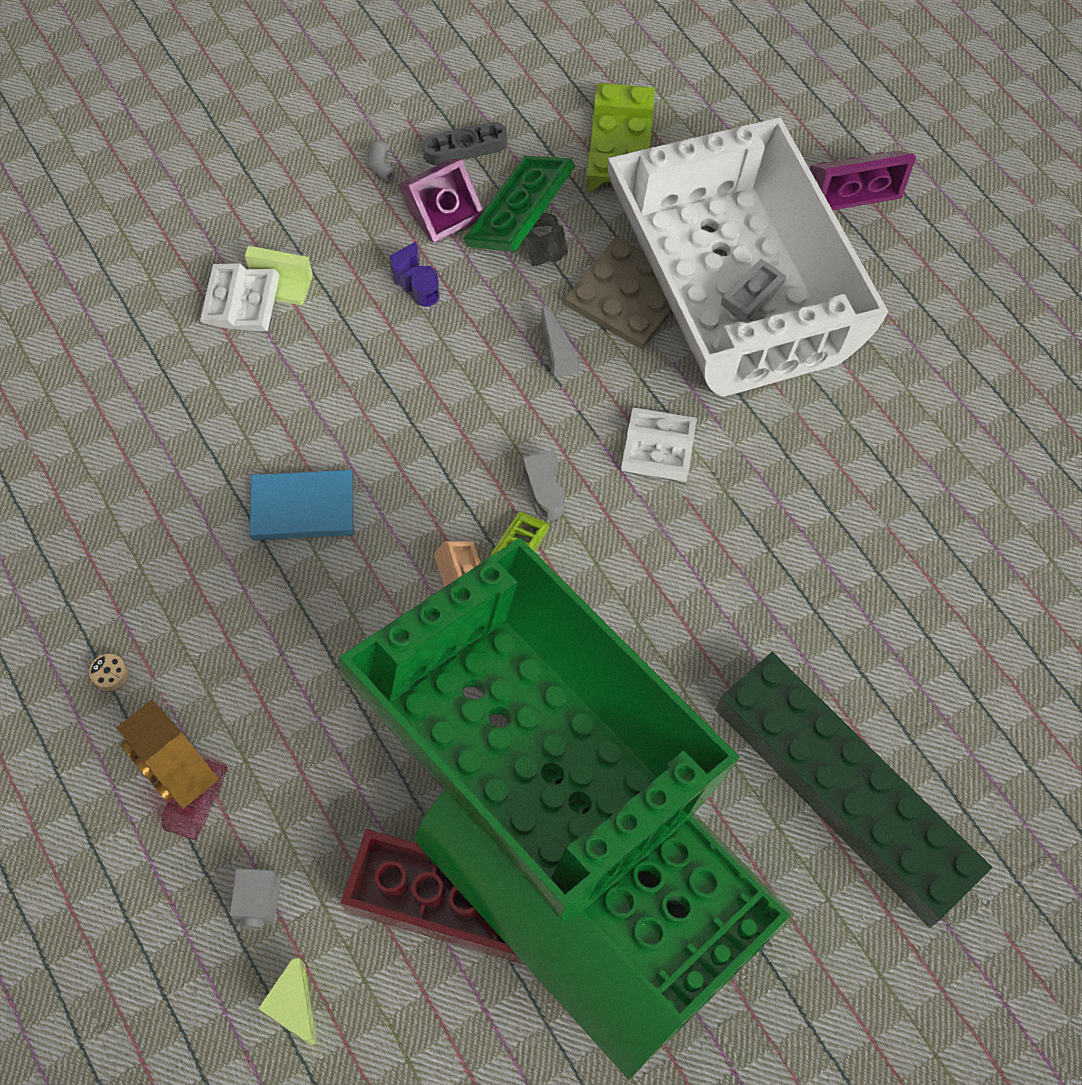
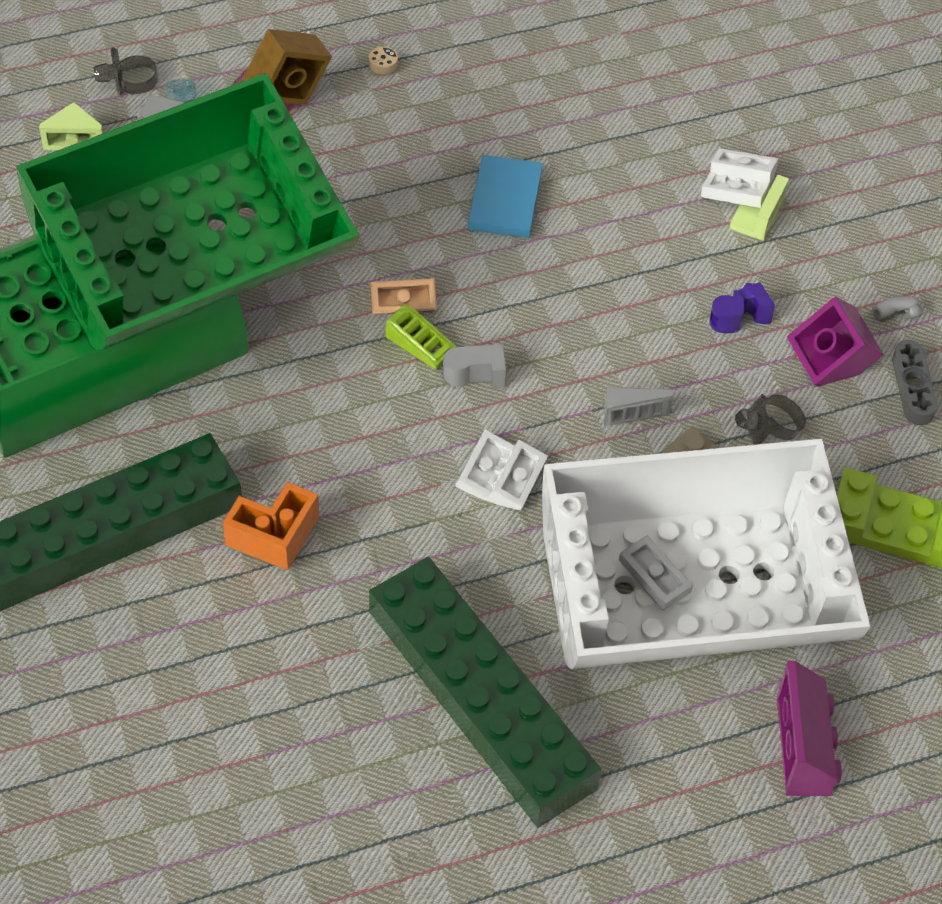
camera: 100 degrees right, 10 degrees down
(182, 996) = (107, 72): none -> clear smoke piece
(196, 893) = (181, 89): none -> clear light blue tile
(519, 203) = (819, 405): green tile -> none
(805, 608) = (273, 532): none -> orange brick
(900, 413) = (484, 691): none -> dark green brick

